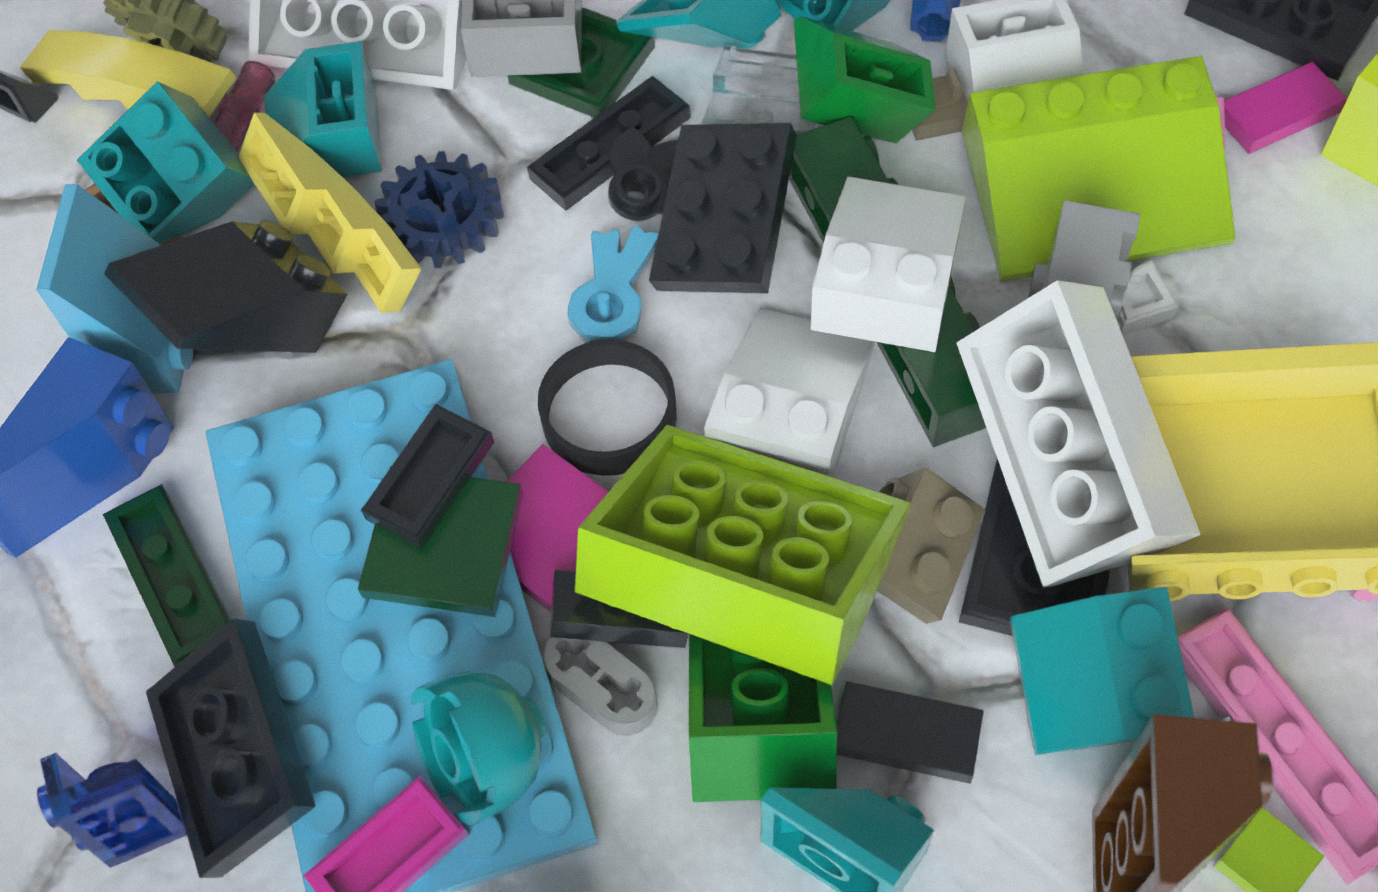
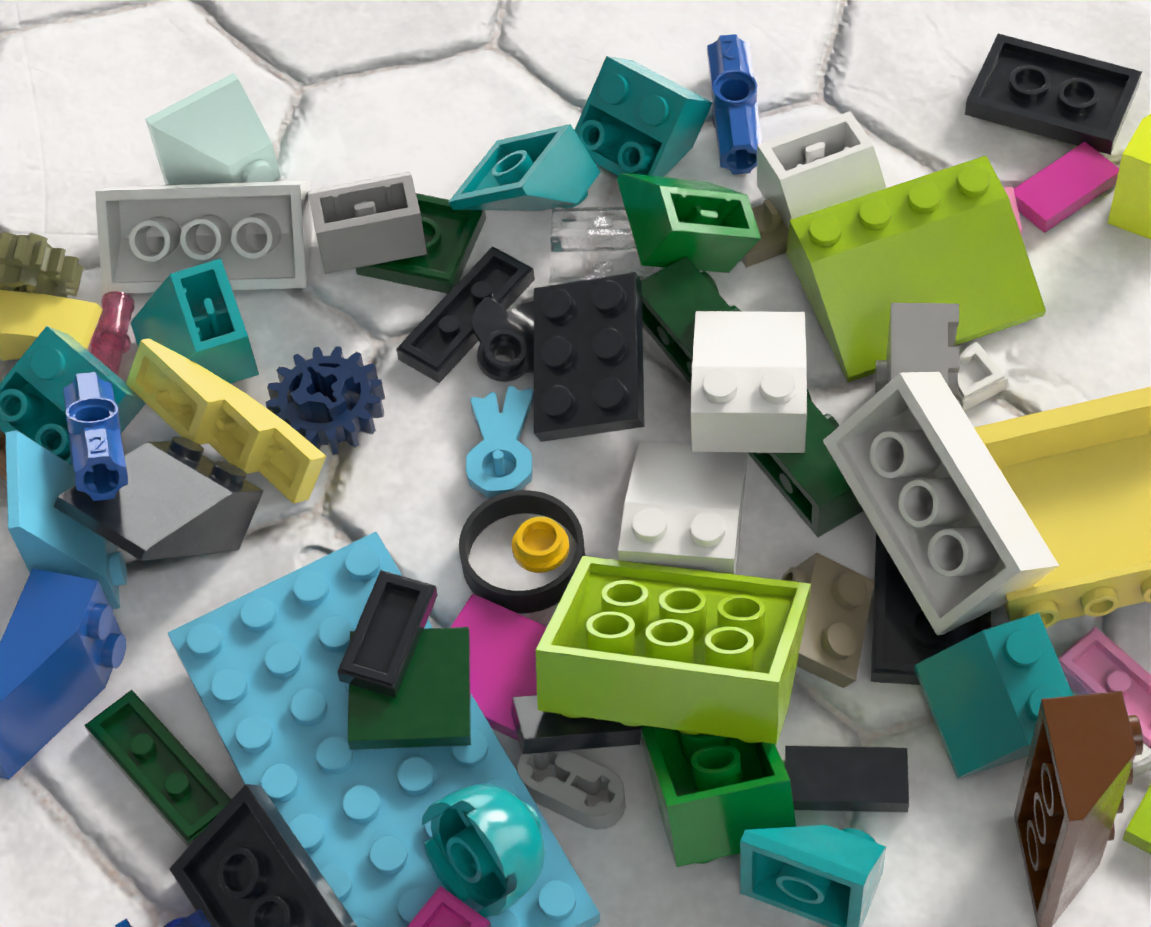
camera: 10 degrees left, 5 degrees down
(165, 206) = (95, 437): none -> blue piece
(623, 405) = (540, 545): none -> yellow plate

